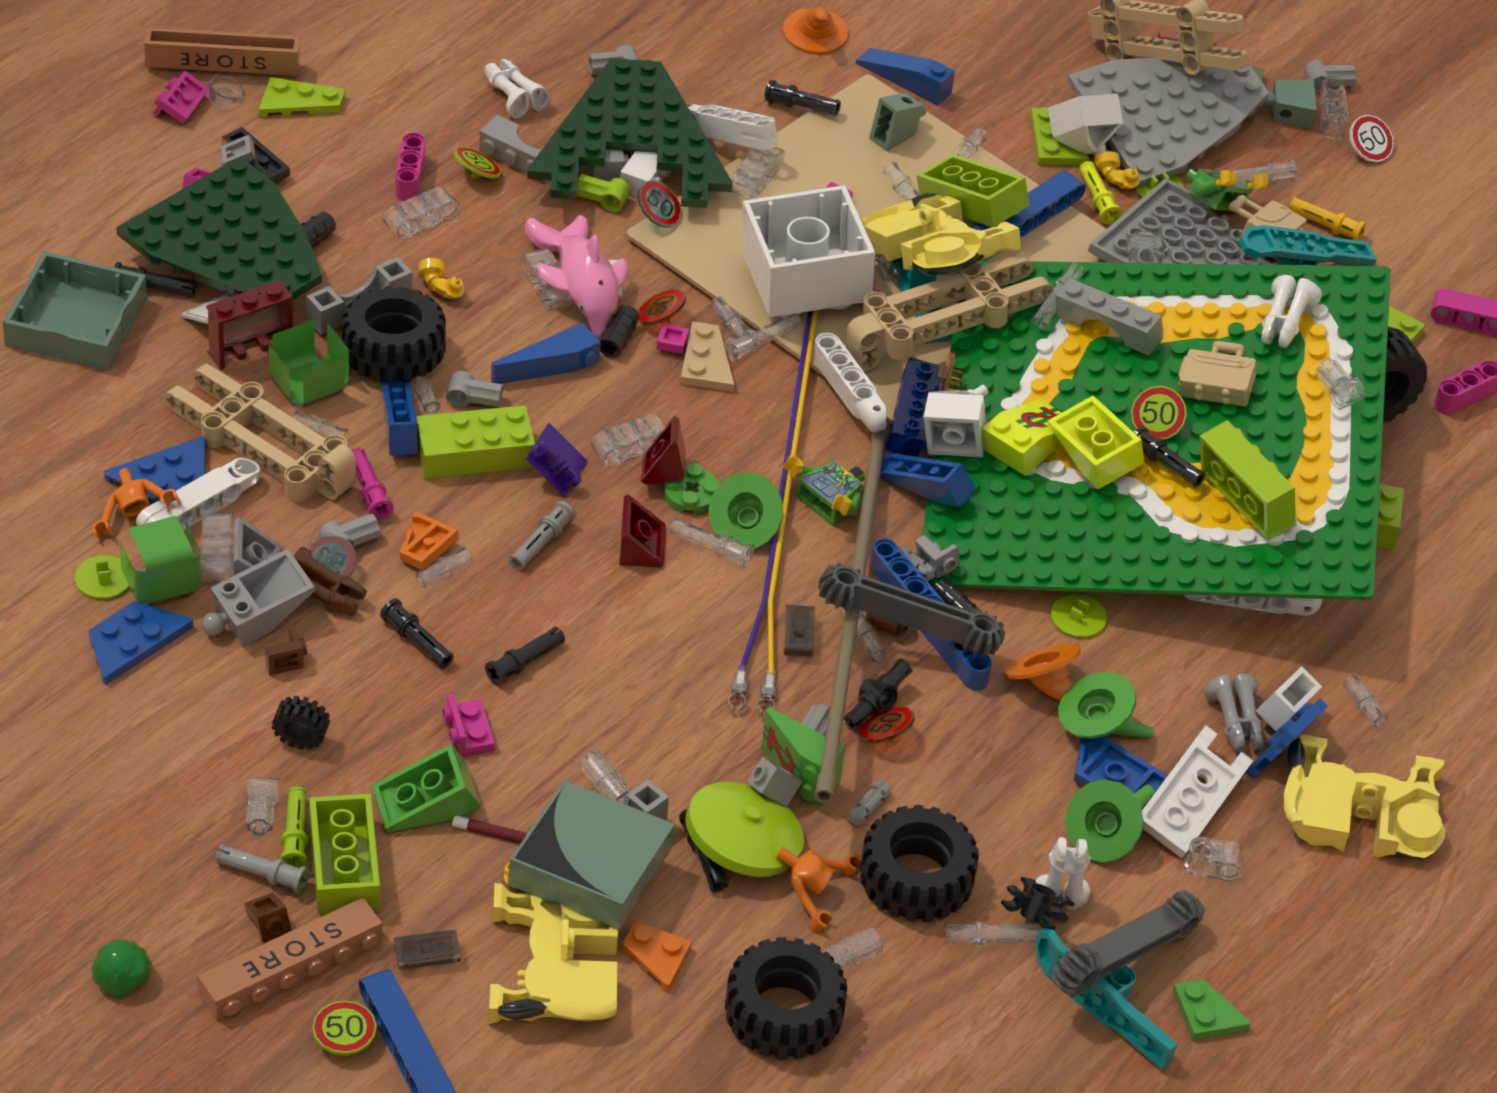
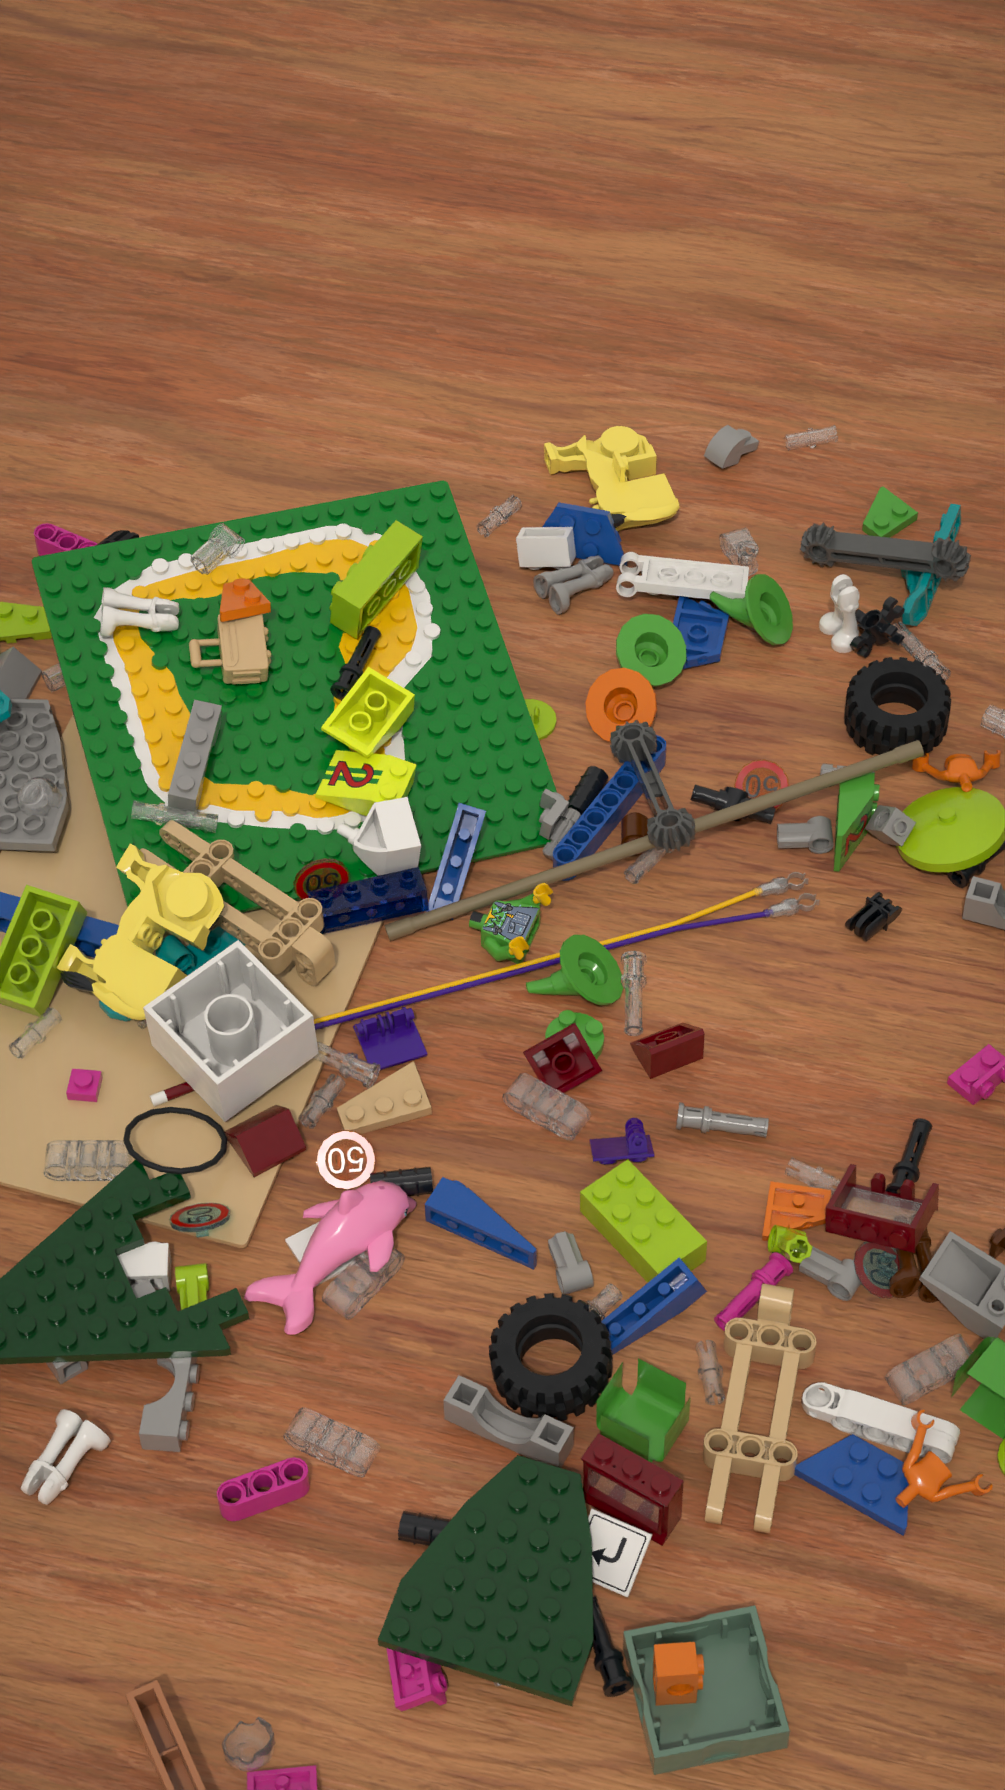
camera: 110 degrees left, 5 degrees up
(92, 285) = (677, 1673): none -> orange brick
(241, 147) = (359, 1661): light grey bracket -> none
(251, 546) = (921, 1331): light grey slope -> none
(265, 160) = (336, 1657): black plate -> none
(293, 96) = (202, 1674): lime wing -> none
(375, 570) = (878, 1214): none -> dark red window
(392, 512) = (789, 1243): none -> lime piece
(433, 273) = (422, 1381): yellow arm -> none
(477, 163) = (219, 1426): lime piece -> none
(515, 660) = (884, 1071): black pin -> none
(603, 776) = (967, 947): clear axle -> none
(672, 338) = (382, 1135): dark pink plate -> none
(685, 731) = (873, 917): none -> black arm
(700, 204) = (209, 1120): none -> black piece
(713, 268) = (266, 1139): none -> dark red slope
(736, 126) = (34, 1192): white piece -> none
(768, 381) = (390, 1038): none -> dark purple hinge
(799, 630) = (695, 888): clear smoke plate -> none
(849, 381) = (363, 968): white piece -> none
(1159, 411) = (308, 680): piece -> none
(1265, 380) = (242, 600): none -> orange wing
(1357, 999) = (811, 437): none -> clear pin
(1374, 917) = (729, 445): none -> light grey brick

